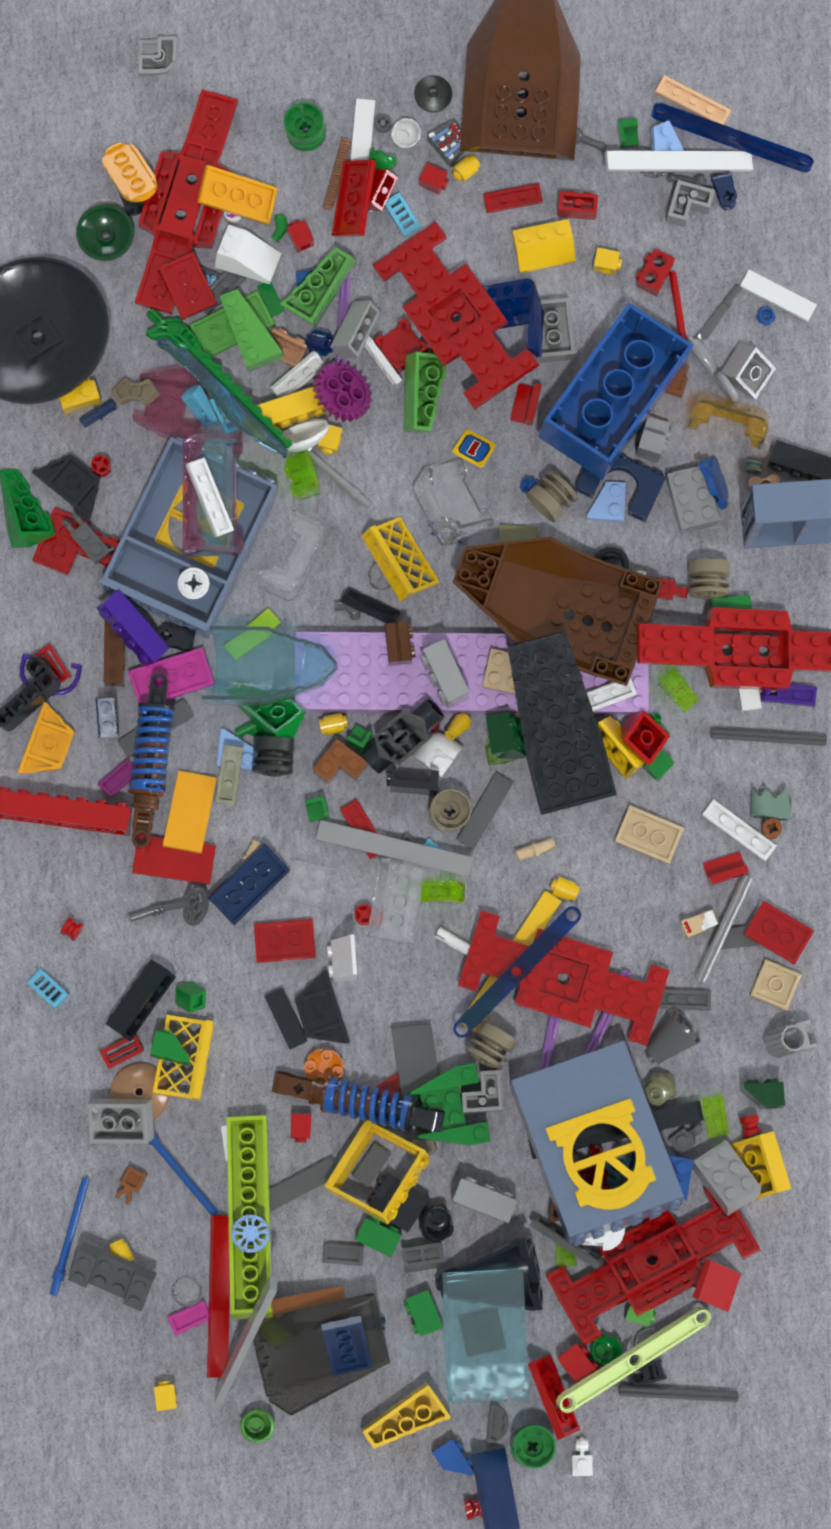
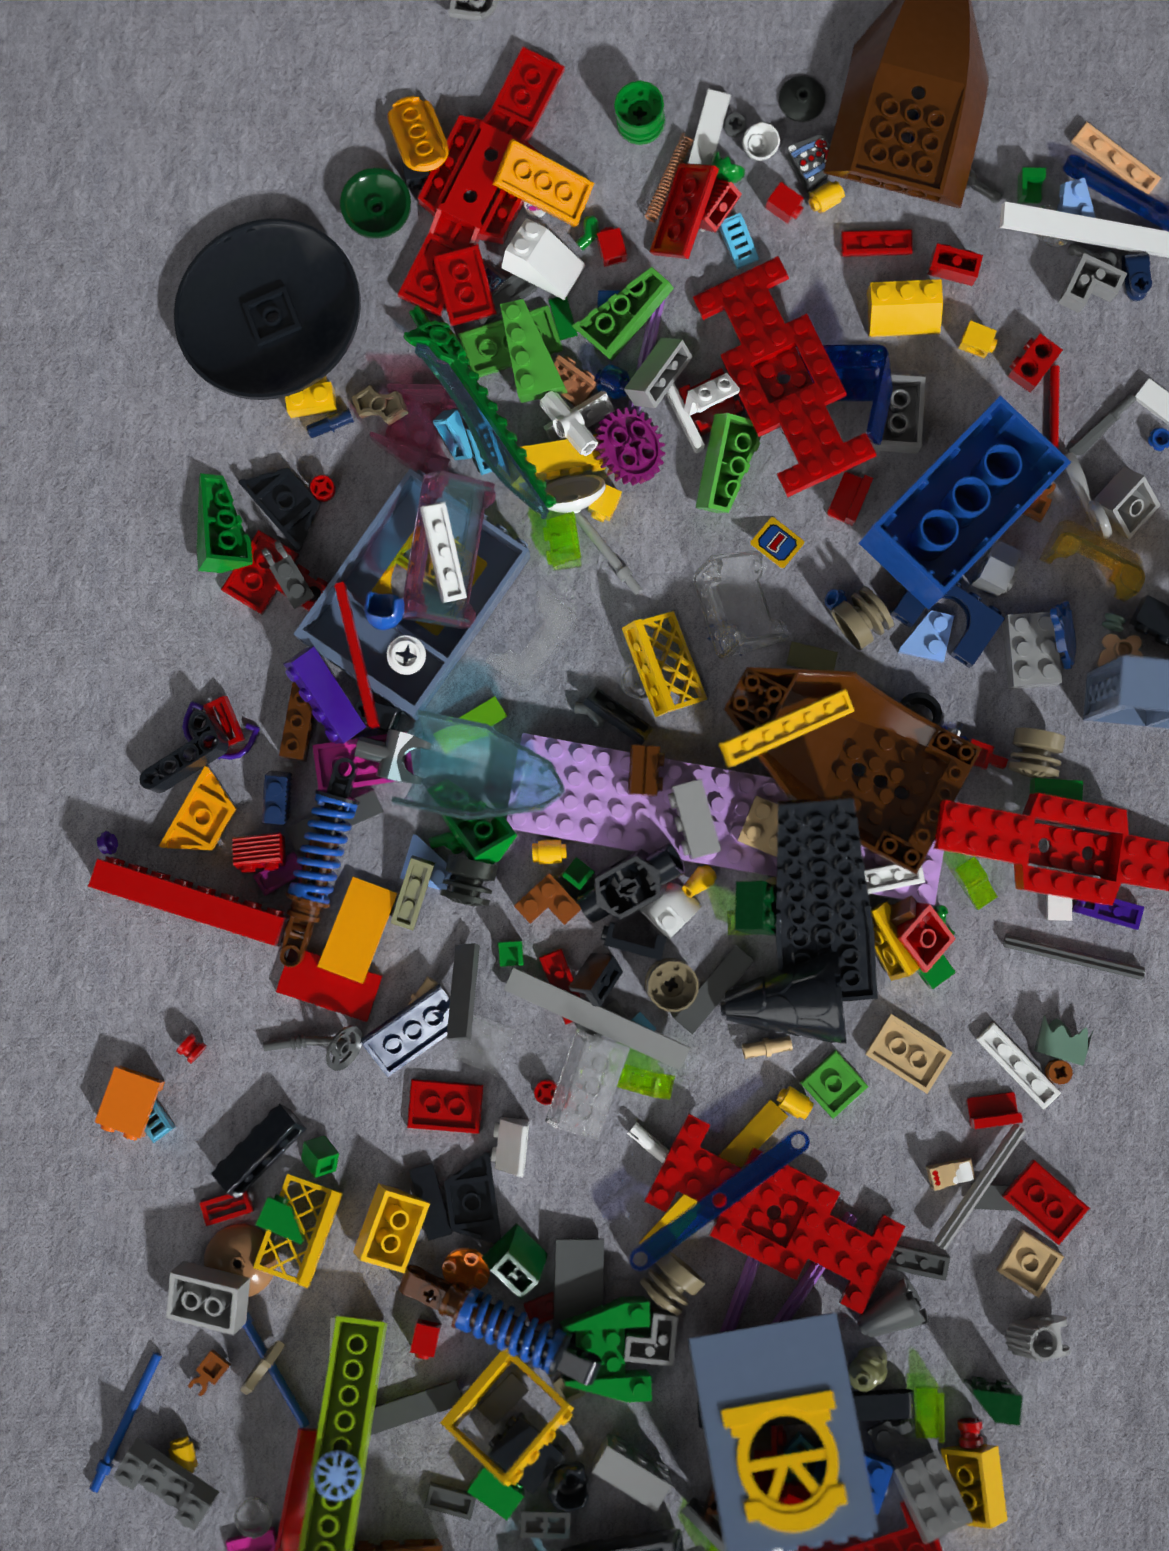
camera: 15 degrees right, 5 degrees up
(28, 980) = (128, 1102): none -> orange panel
(100, 762) = (259, 851): none -> red brick
(154, 589) = (357, 655): none -> red tile
(170, 550) = (383, 610): none -> blue hair
(173, 1170) = (262, 1367): none -> dark tan tile
(194, 666) = (391, 754): none -> dark grey connector
(258, 1042) = (391, 1228): none -> yellow slope
(283, 845) = (463, 992): none -> dark grey tile
(290, 381) = (568, 423): none -> white piece
(363, 1050) = (517, 1260): none -> dark green slope
(389, 816) = (597, 977): none -> black panel
(399, 339) = (710, 394): none -> white bracket
(504, 587) = (786, 727): none -> yellow tile
(549, 807) = (793, 1001): none -> black cone
(594, 870) = (834, 1084): none -> bright green tile
(624, 720) = (903, 911): none -> reddish brown tile

